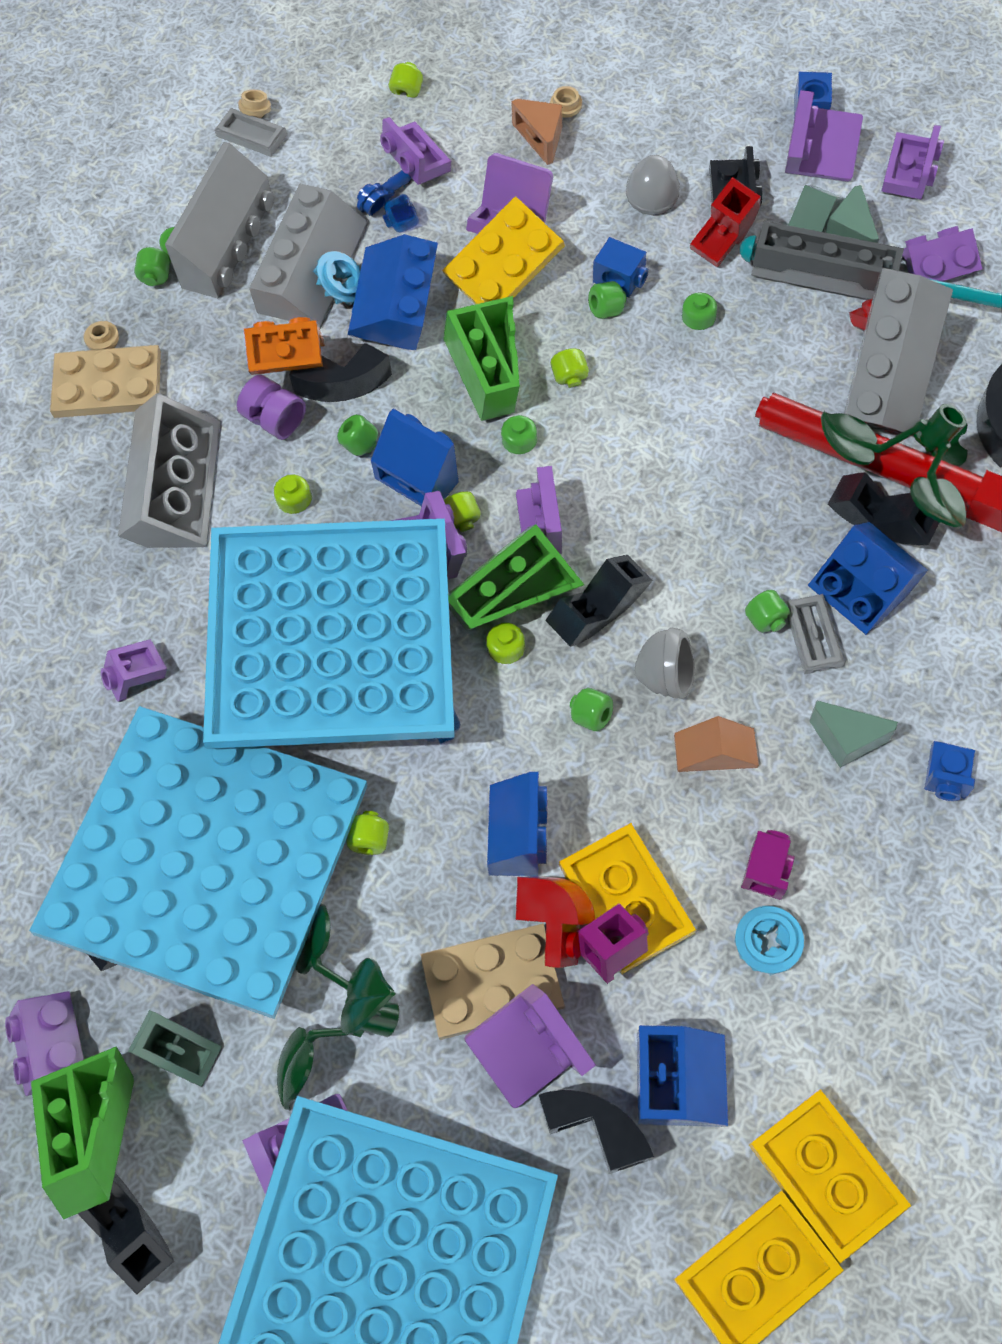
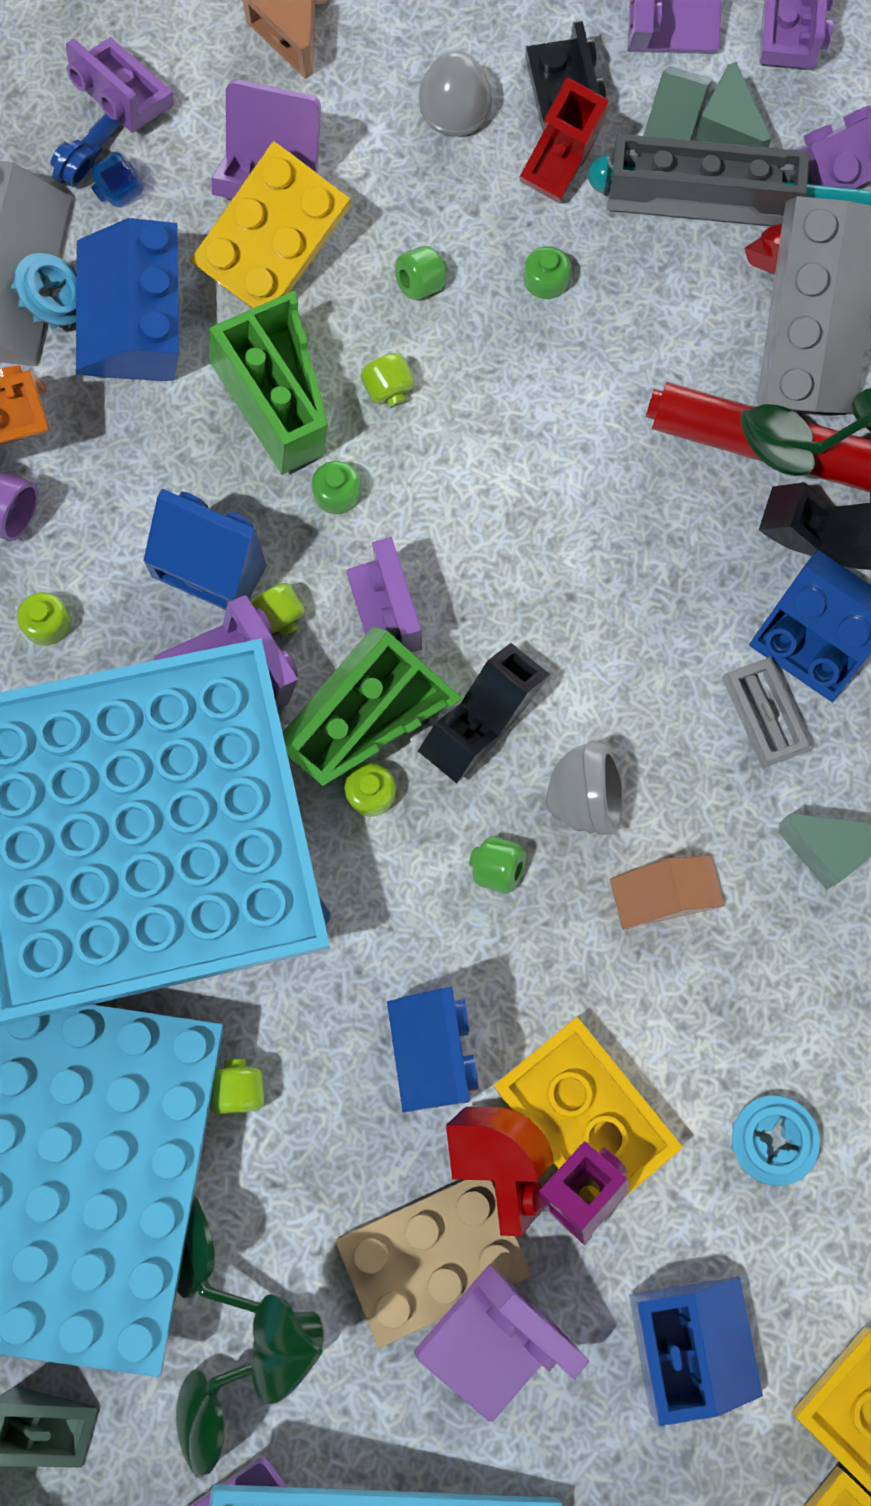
camera: 15 degrees left, 10 degrees up
(336, 383) = (72, 449): black brick -> none
(357, 435) = (117, 522): bright green piece -> none
(618, 1135) = (628, 1435): black brick -> none
(620, 264) = (432, 220): blue brick -> none
(767, 611) = (705, 694): bright green piece -> none
(769, 864) = (760, 1041): magenta brick -> none

